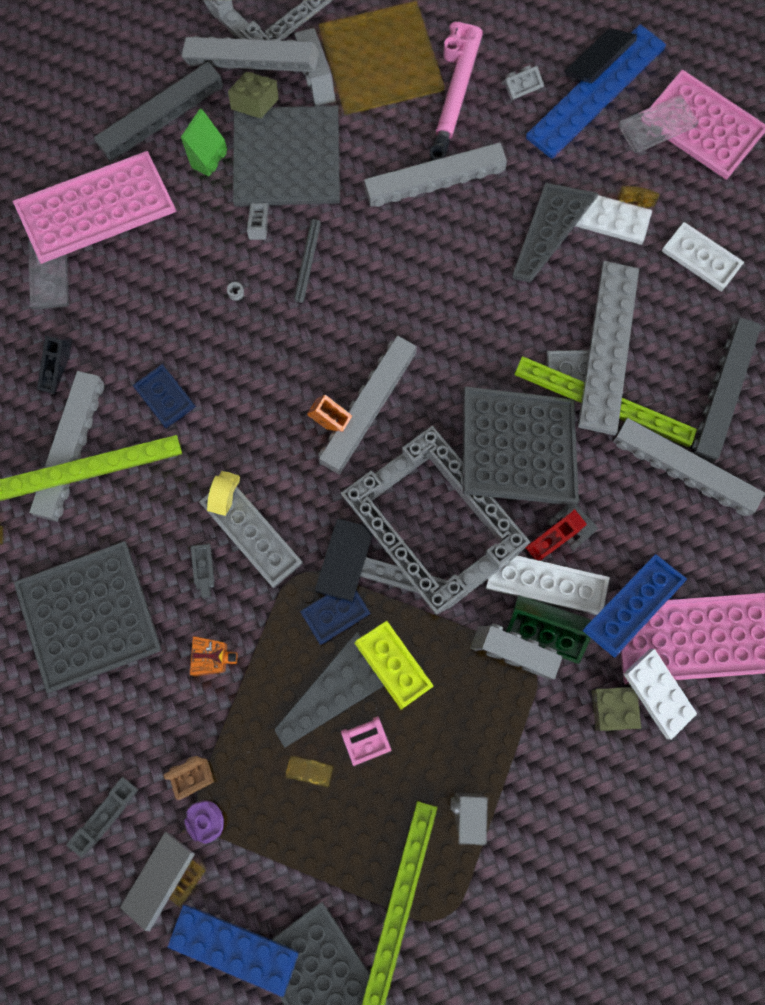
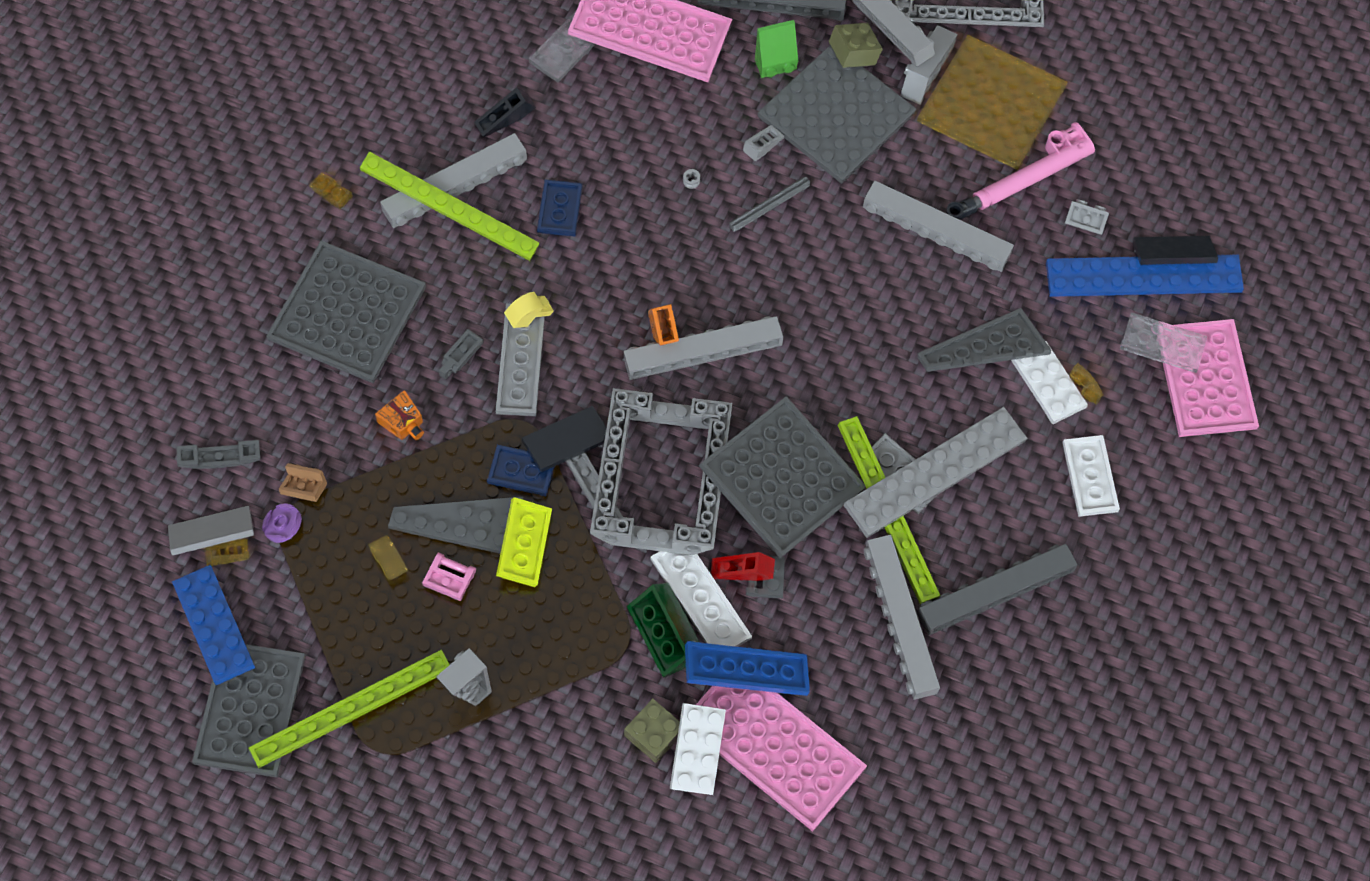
camera: 40 degrees right, 10 degrees down
(517, 651) = (623, 617): light grey wedge -> none

